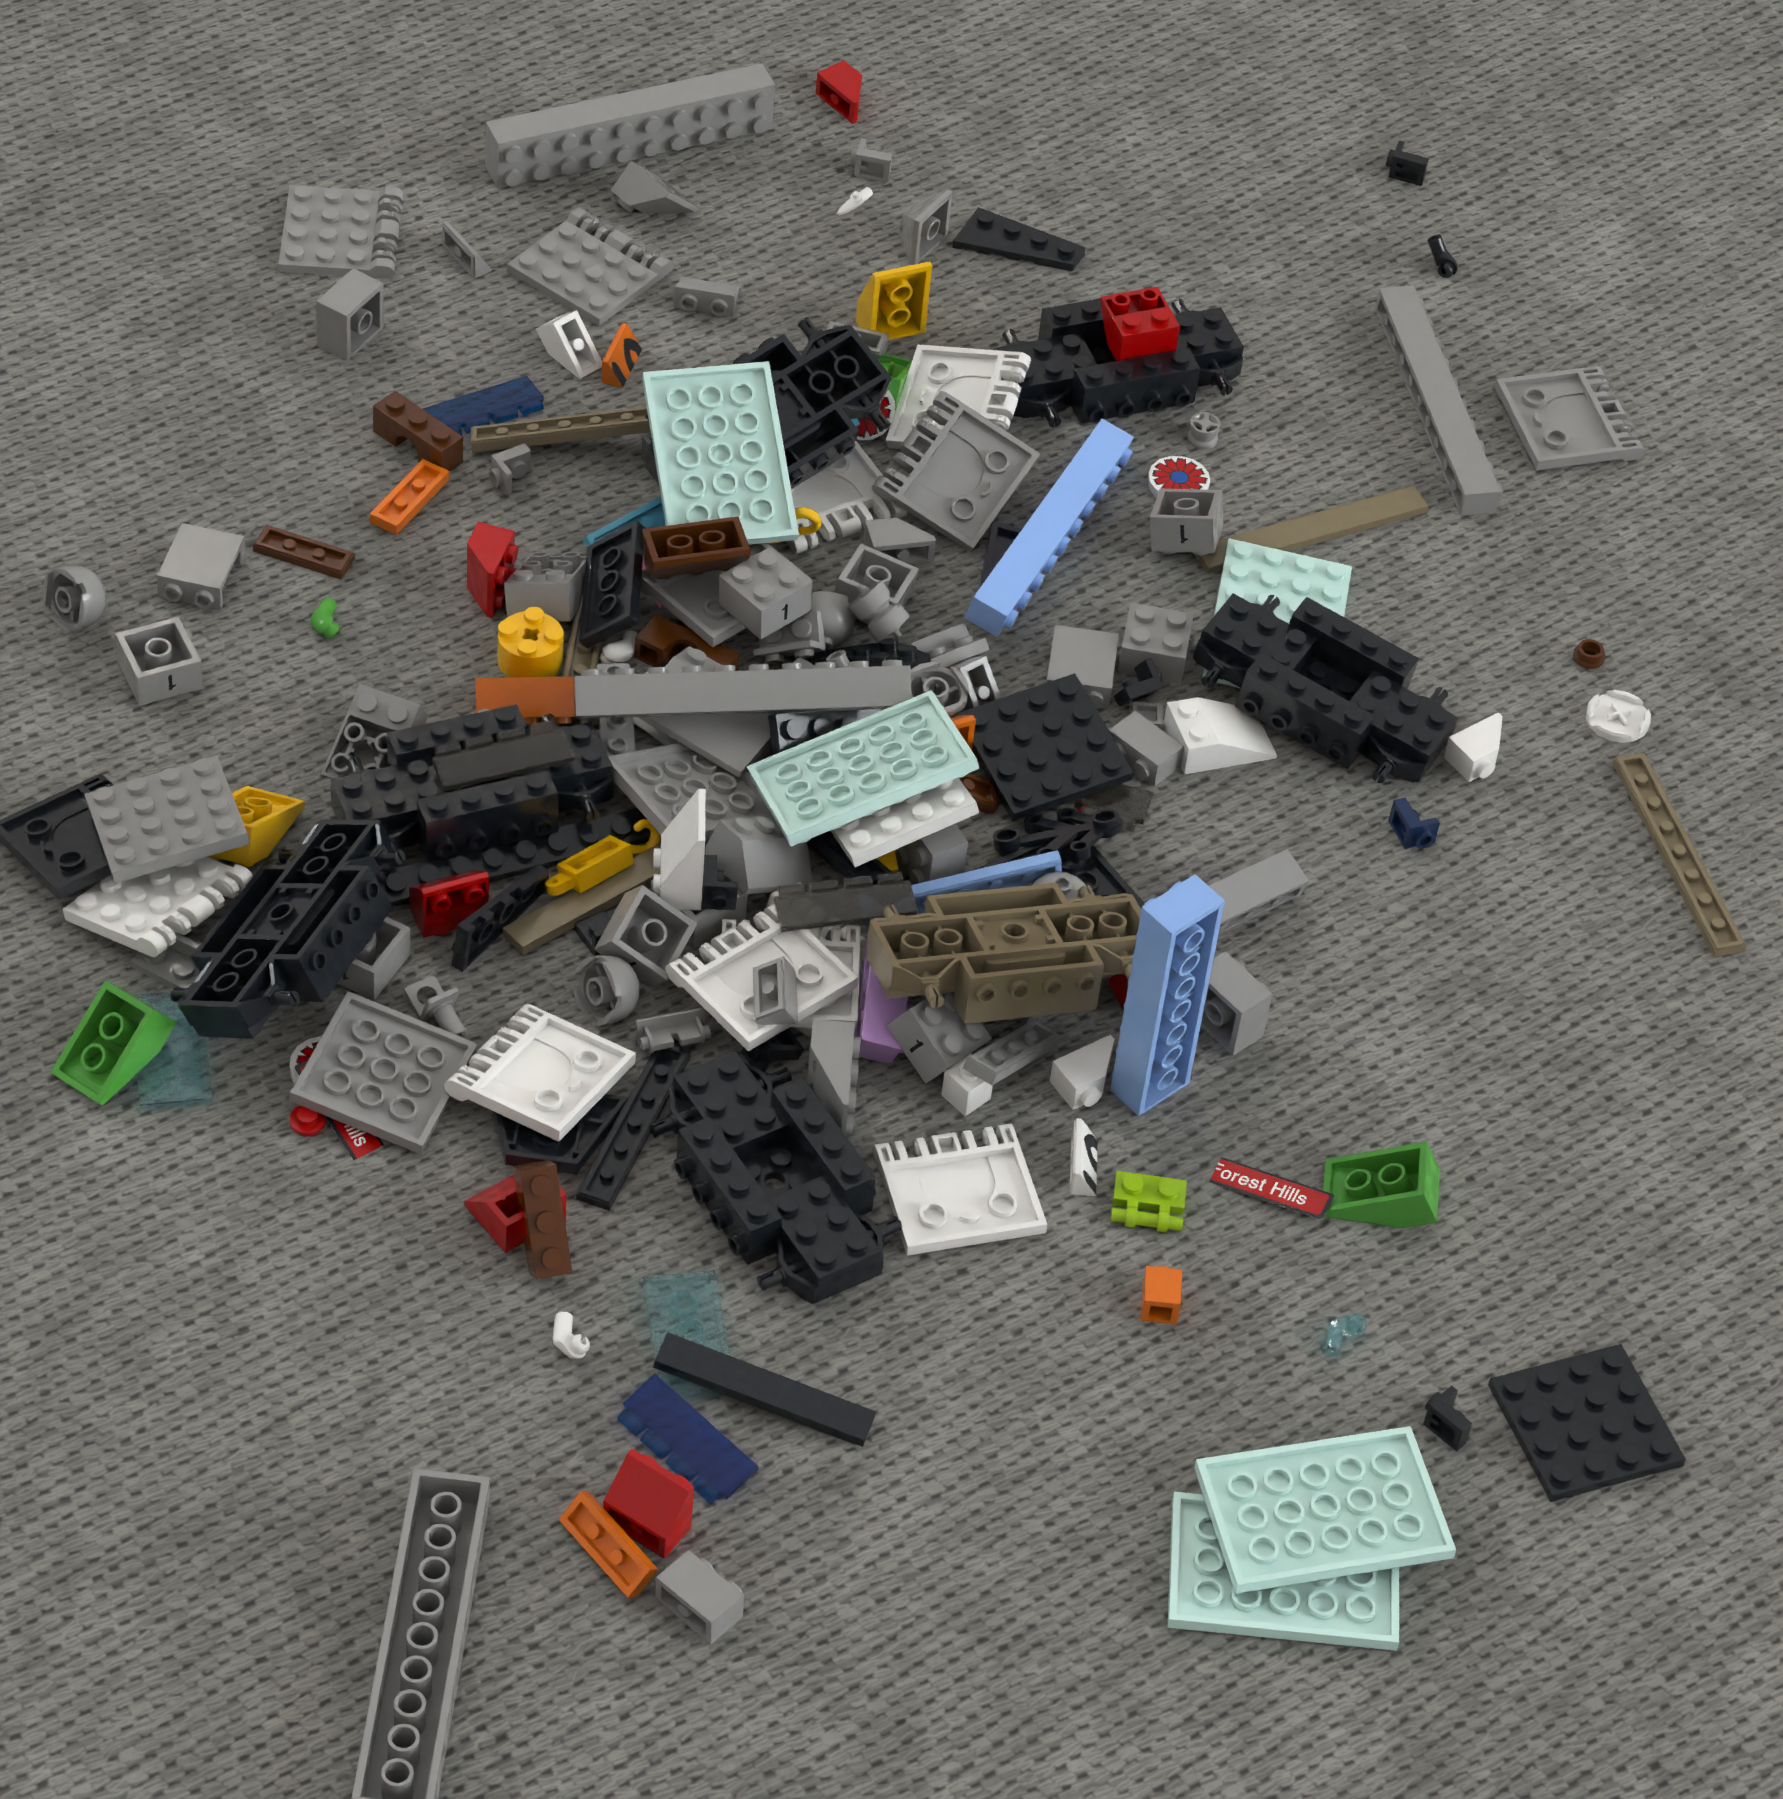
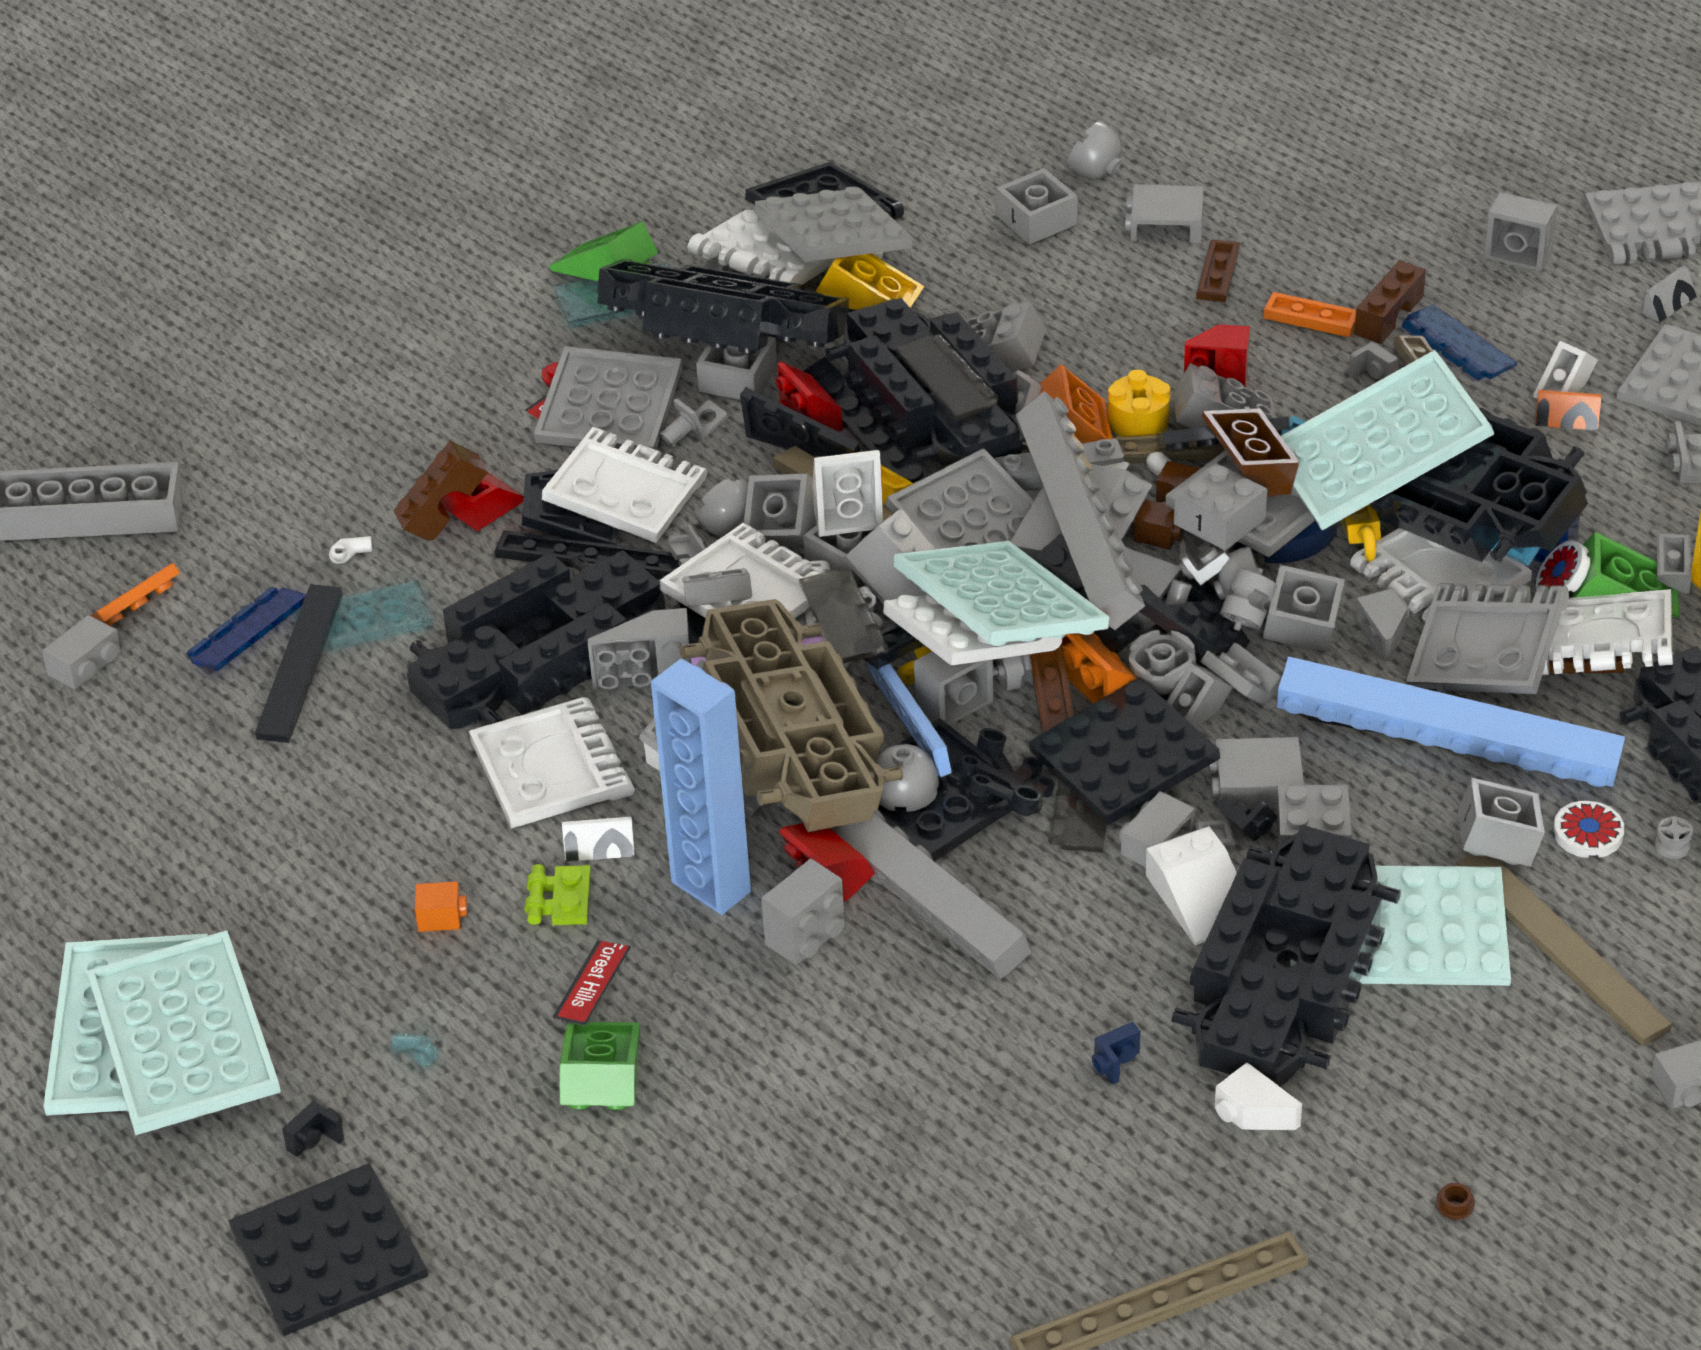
camera: 90 degrees right, 5 degrees down
(323, 620) = (1138, 291): bright green arm -> none
(650, 1503) = (166, 607): red slope -> none
(716, 892) = (838, 527): black bracket -> none
(1618, 716) = (1365, 1236): white tile -> none

